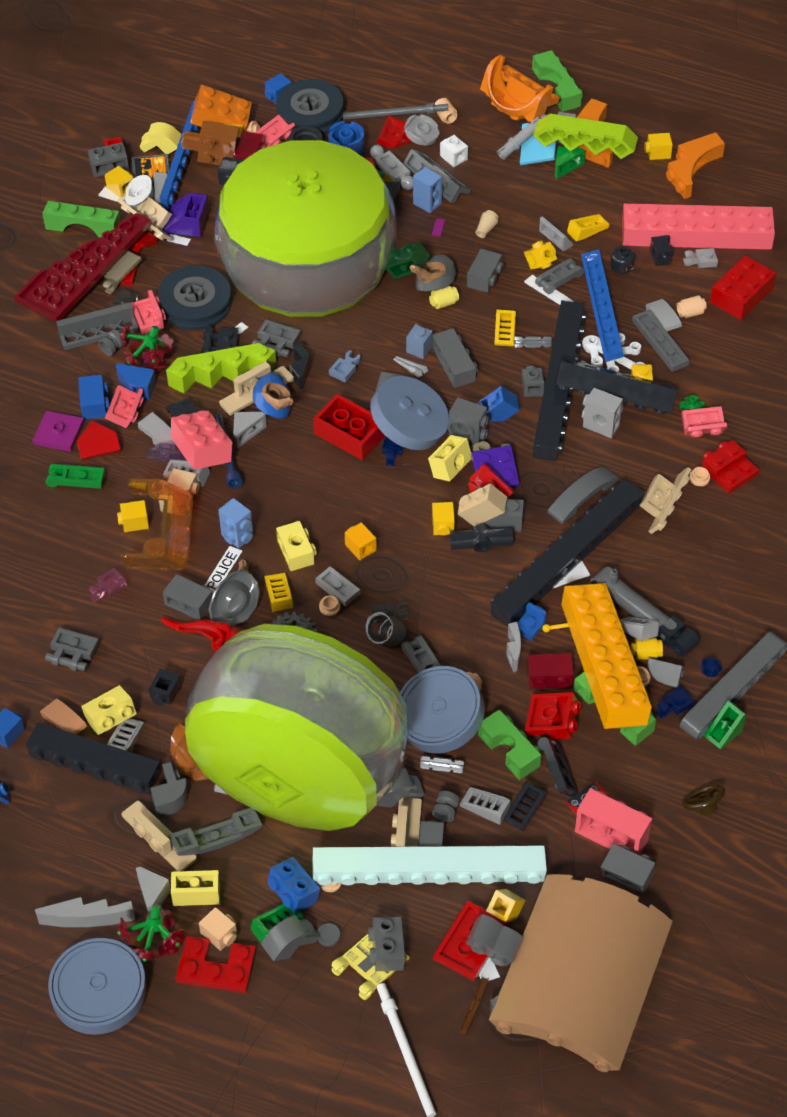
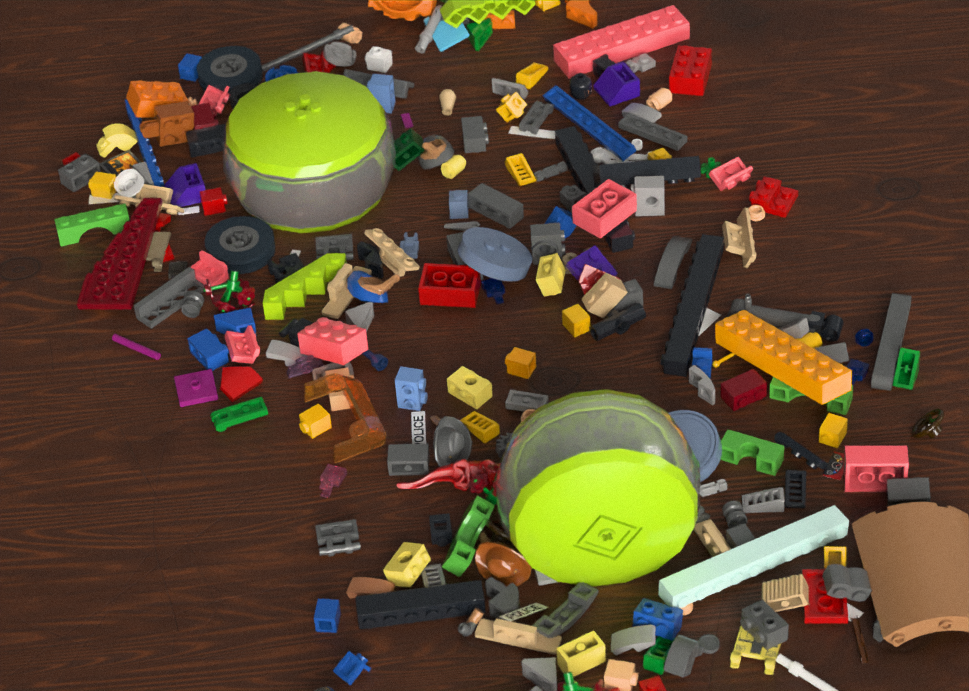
camera: 25 degrees left, 10 degrees down
(37, 364) = (135, 346): none -> magenta bar
(120, 804) = (467, 628): none -> arm
(166, 718) = (462, 546): none -> bright green arch
(176, 814) = (523, 612): none -> white sticker
(201, 240) = (213, 201): none -> red brick
(257, 895) = (634, 637): none -> light grey slope
(319, 365) = (391, 254): none -> tan bracket
(430, 920) = (786, 593): none -> tan brick
(542, 409) = (604, 208): none -> coral brick
(553, 715) = (770, 417): red plate -> none
(605, 759) = (833, 430): none -> yellow brick
(659, 273) = (617, 84): none -> dark purple slope

